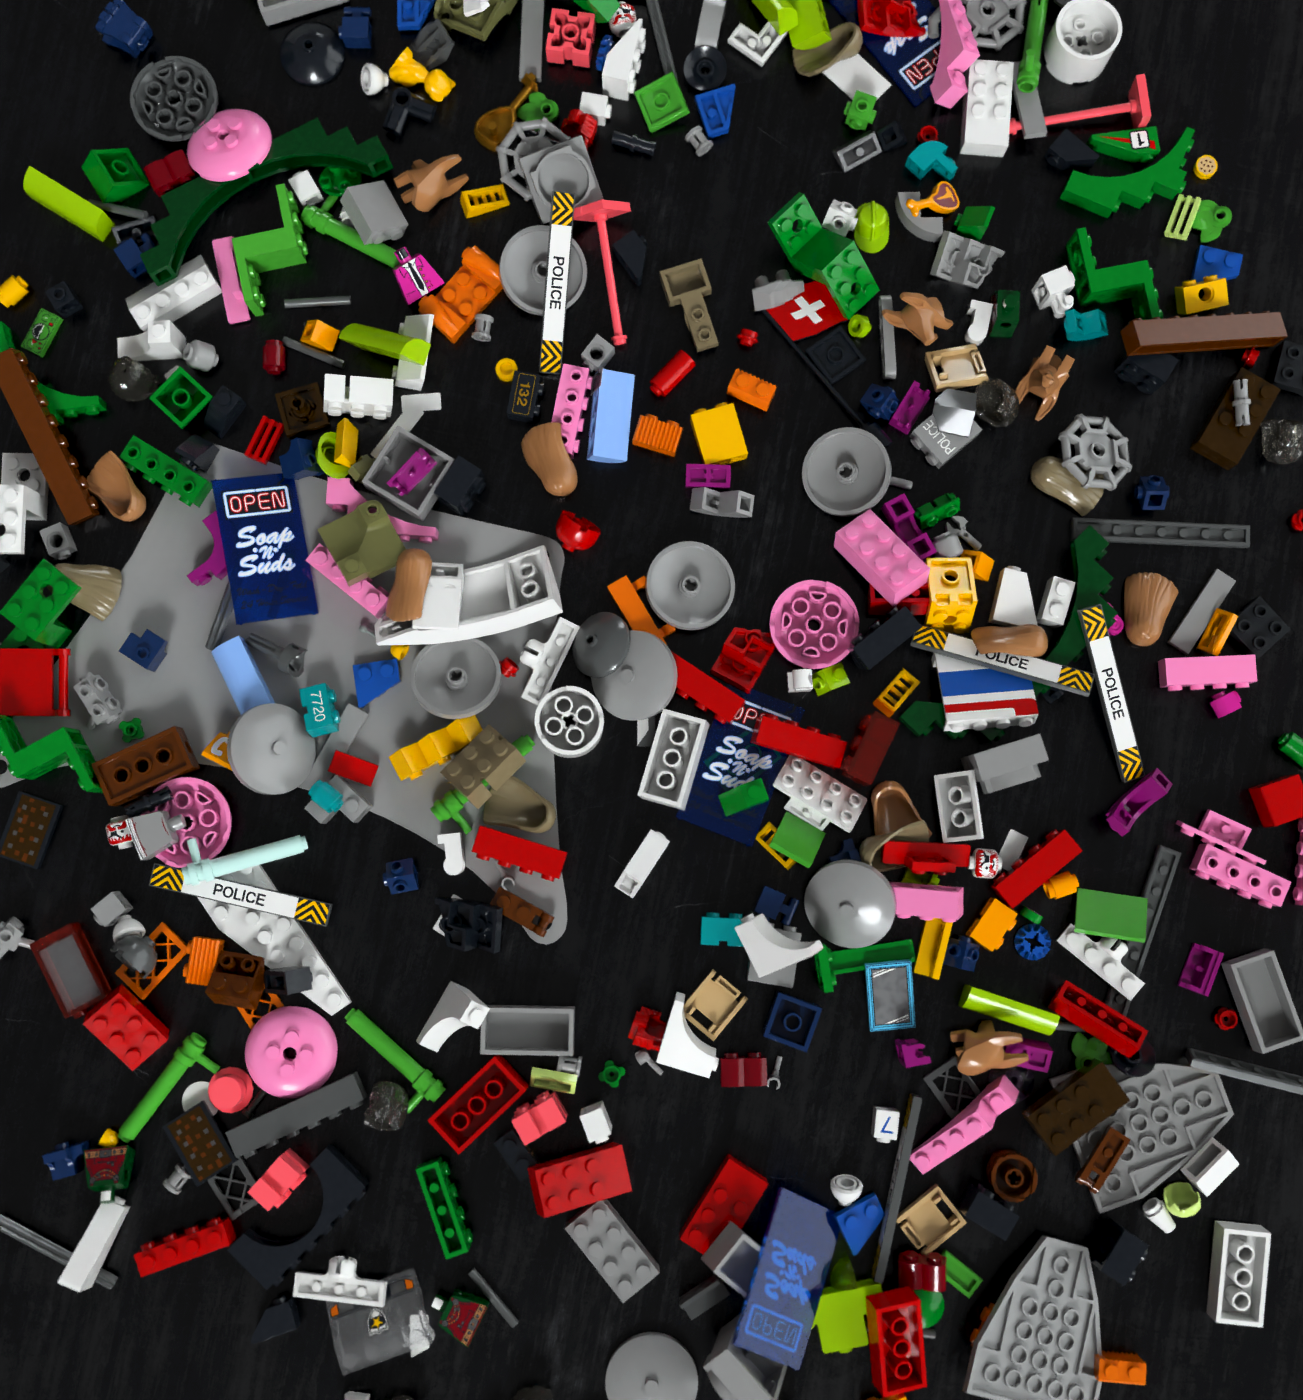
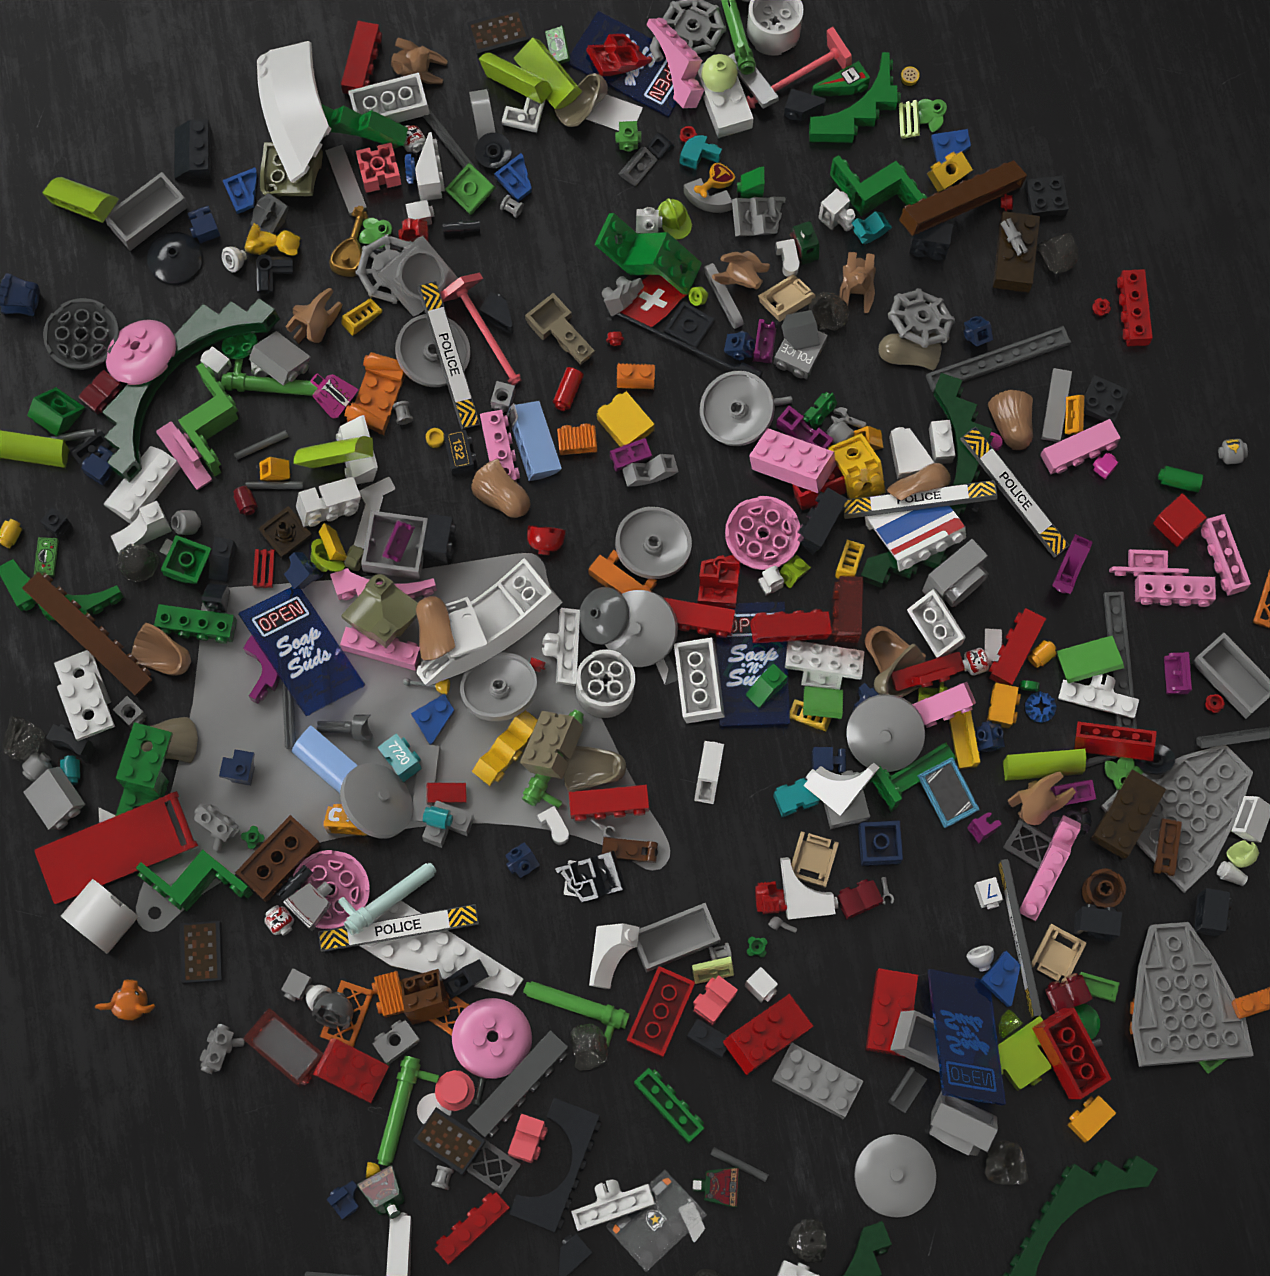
camera: 25 degrees left, 10 degrees down
(176, 1020) = (391, 1053): none -> light grey brick
(993, 77) = (719, 73): none -> yellowish green cylinder

